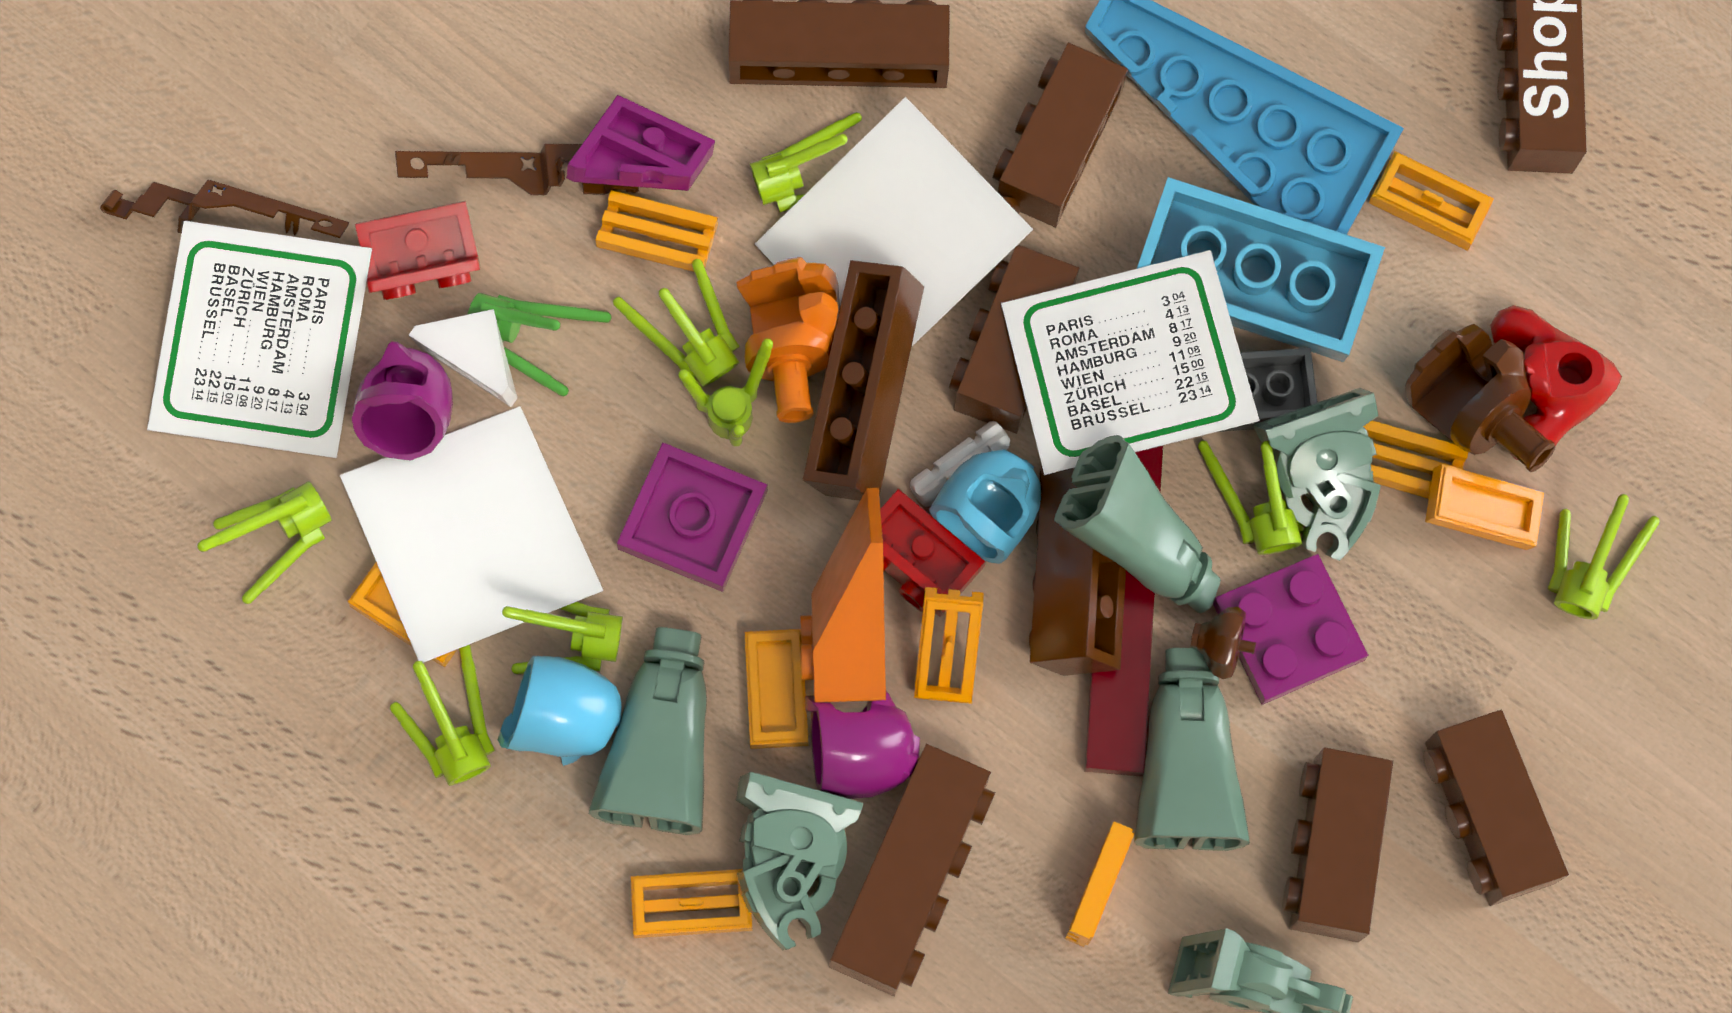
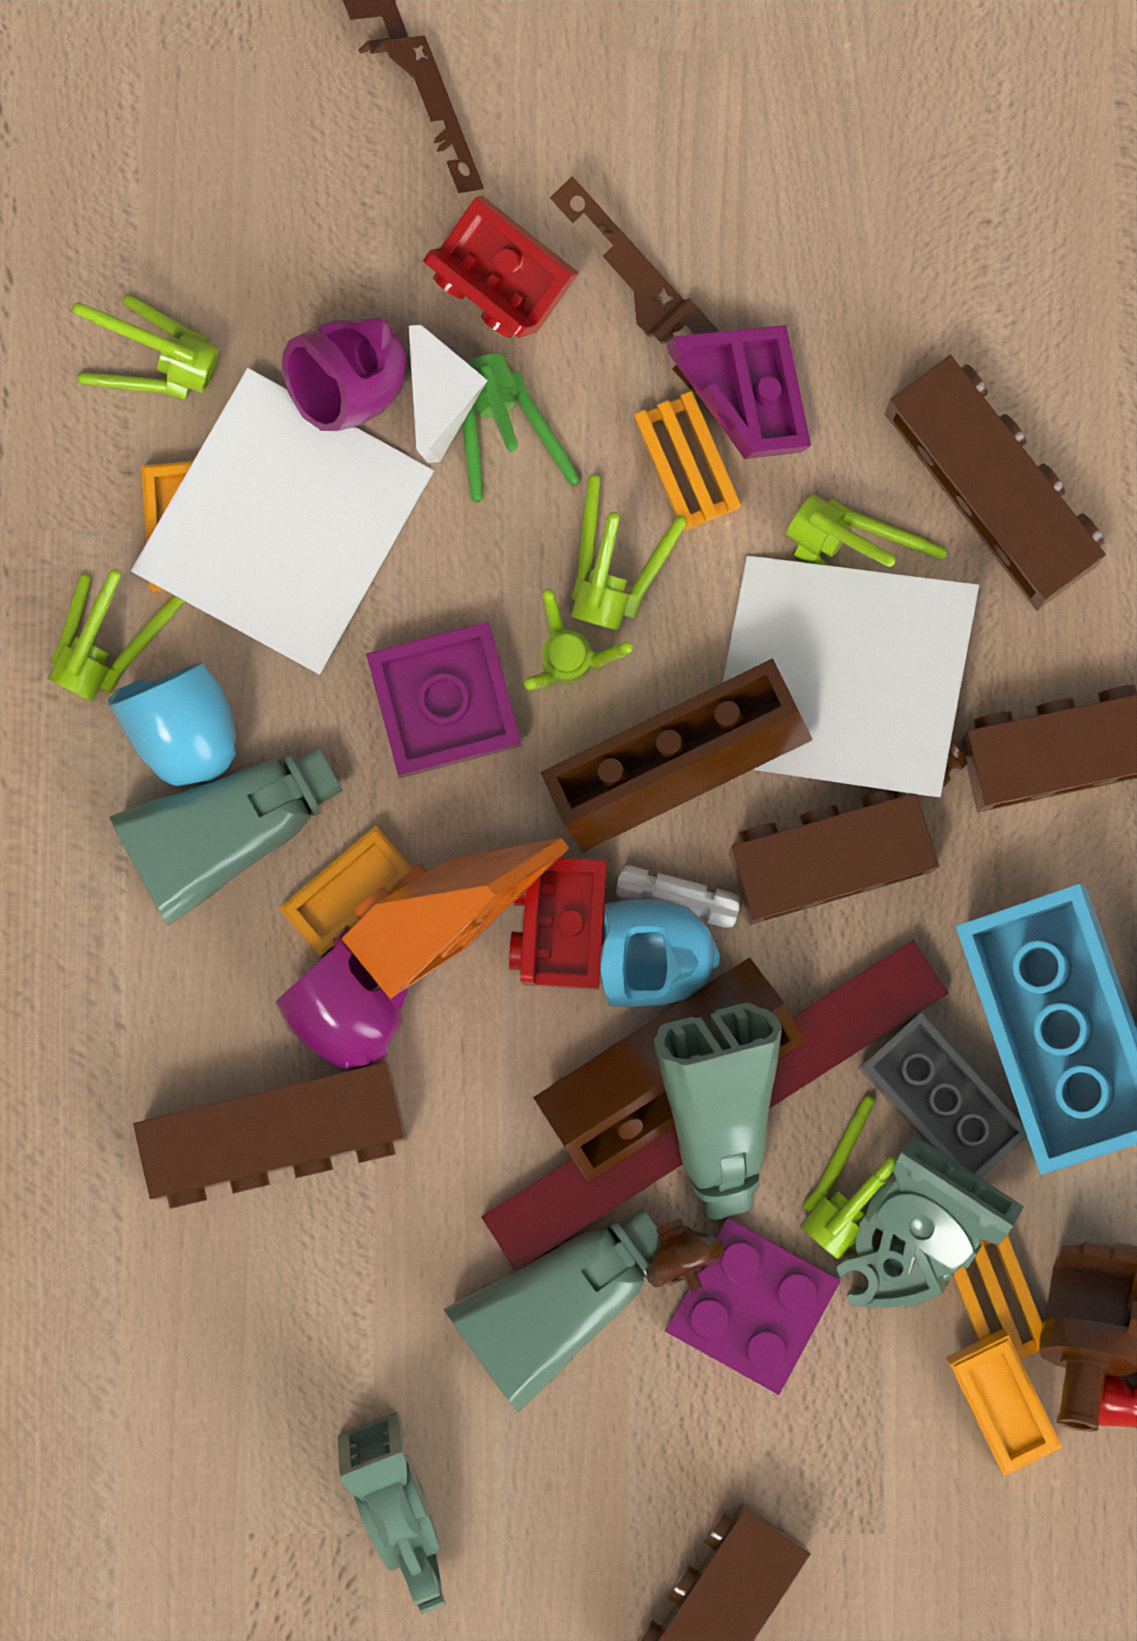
camera: 60 degrees right, 10 degrees up
(259, 339) = (315, 200): white sticker -> none
(593, 631) = (271, 699): lime plant -> none
(691, 926) = (140, 1004): light orange tile -> none
(788, 844) = (209, 1010): sand green piece -> none
(799, 312) = (683, 654): orange piece -> none
(952, 604) = (522, 994): light orange tile -> none
(1100, 884) = (382, 1307): light orange tile -> none
(1129, 358) = (875, 980): white sticker -> none
(1338, 844) = (578, 1492): reddish brown brick -> none
(1583, 588) = (997, 1547): lime plant -> none

